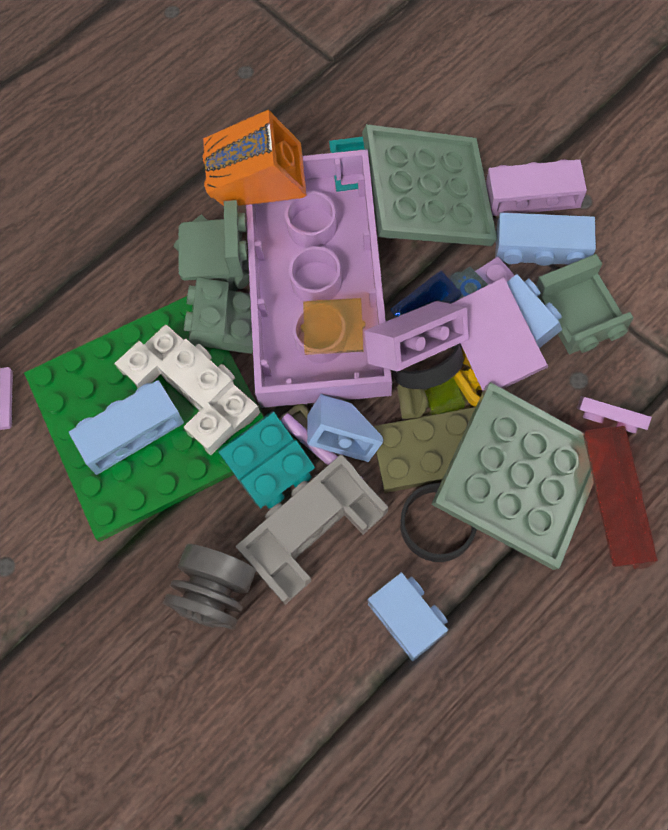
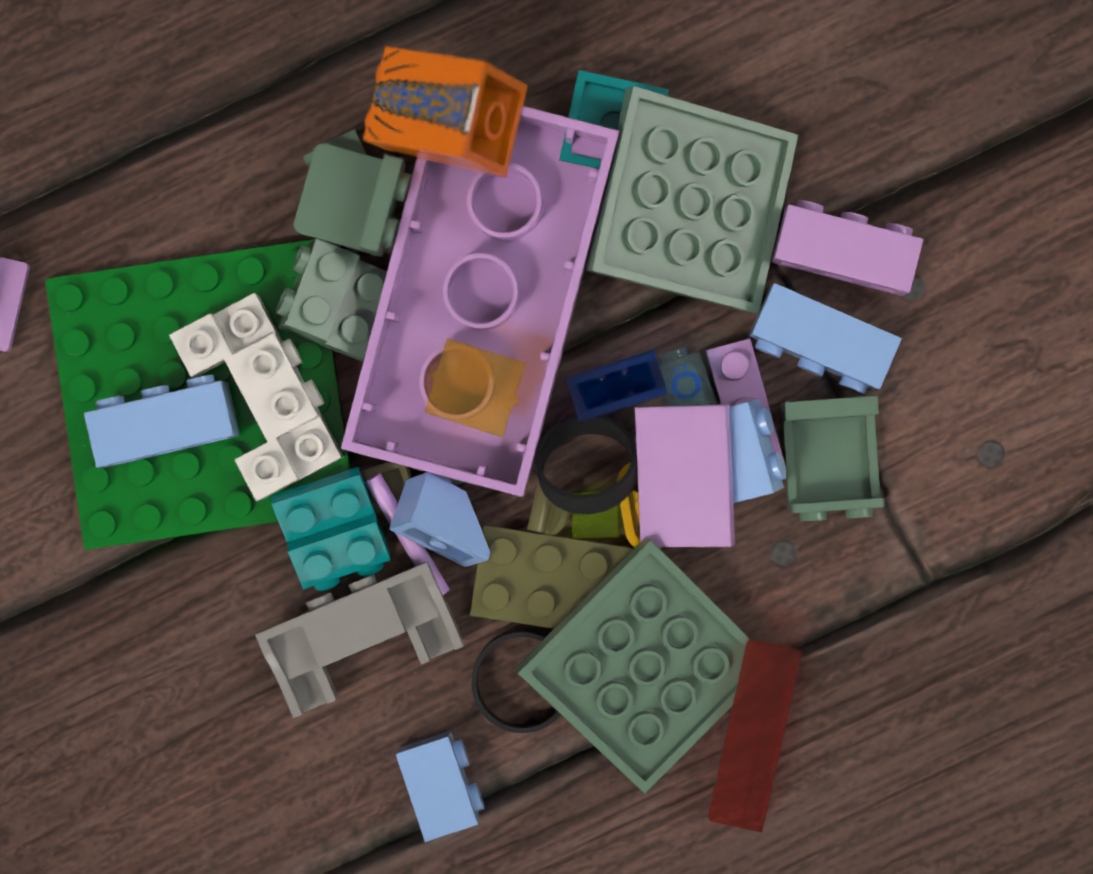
camera: 10 degrees right, 20 degrees up
(209, 587) = (202, 679): flat silver wheel -> none
(416, 335) = (575, 452): lavender brick -> none
(598, 411) = (811, 630): lavender plate -> none

